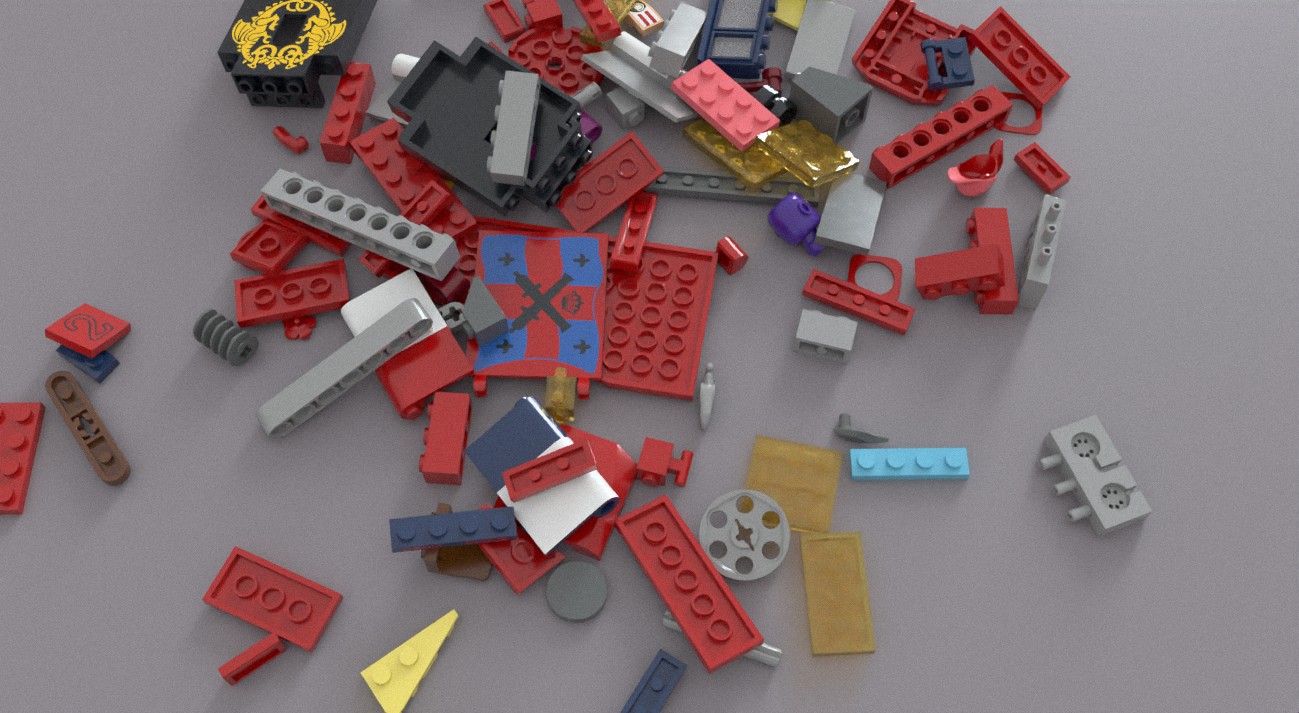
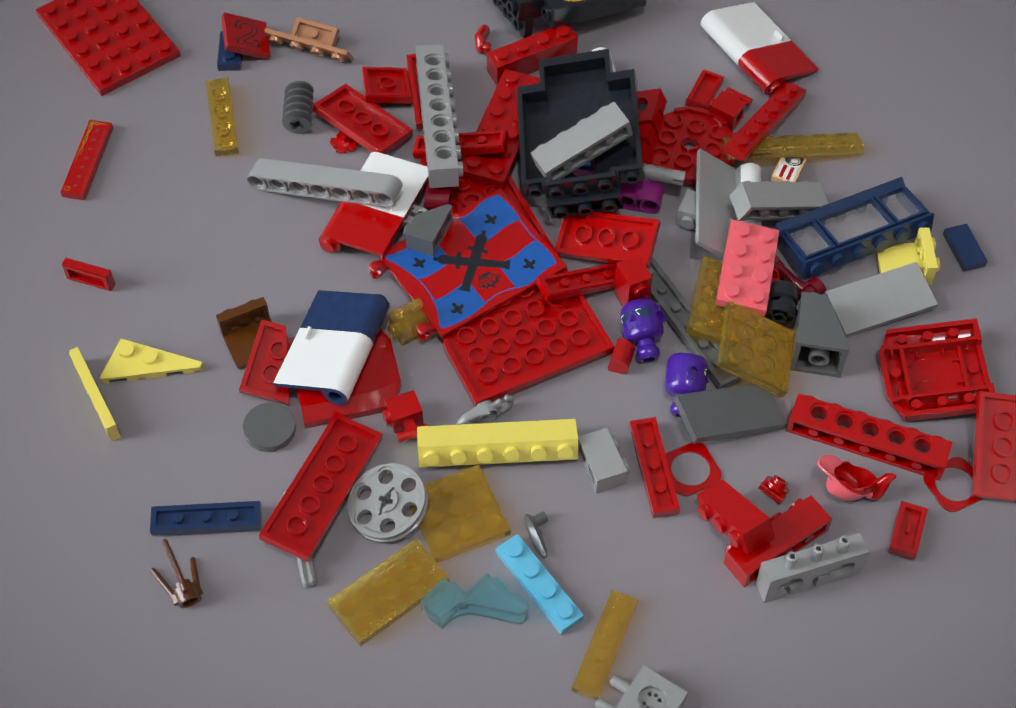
camera: 55 degrees right, 5 degrees down
(96, 576) = (87, 160): none -> red tile
(101, 448) = (187, 70): reddish brown piece -> none
(147, 273) = (311, 36): none -> nougat bracket
(167, 413) = (222, 117): none -> clear yellow plate
(273, 599) = (136, 259): red plate -> none
(446, 438) = (328, 273): red brick -> none
(452, 529) = (249, 316): dark blue plate -> none
(549, 470) = (331, 341): red plate -> none
(673, 196) = (632, 280): none -> red brick
(716, 217) = (643, 327): none -> dark purple piece
(749, 406) = (497, 443): none -> light yellow brick
(899, 514) = (485, 599): none -> clear light blue arch
(940, 231) = (775, 488): none -> red plate
(955, 63) = (947, 402): dark blue plate -> none
(1002, 451) = (604, 645): none -> clear yellow plate

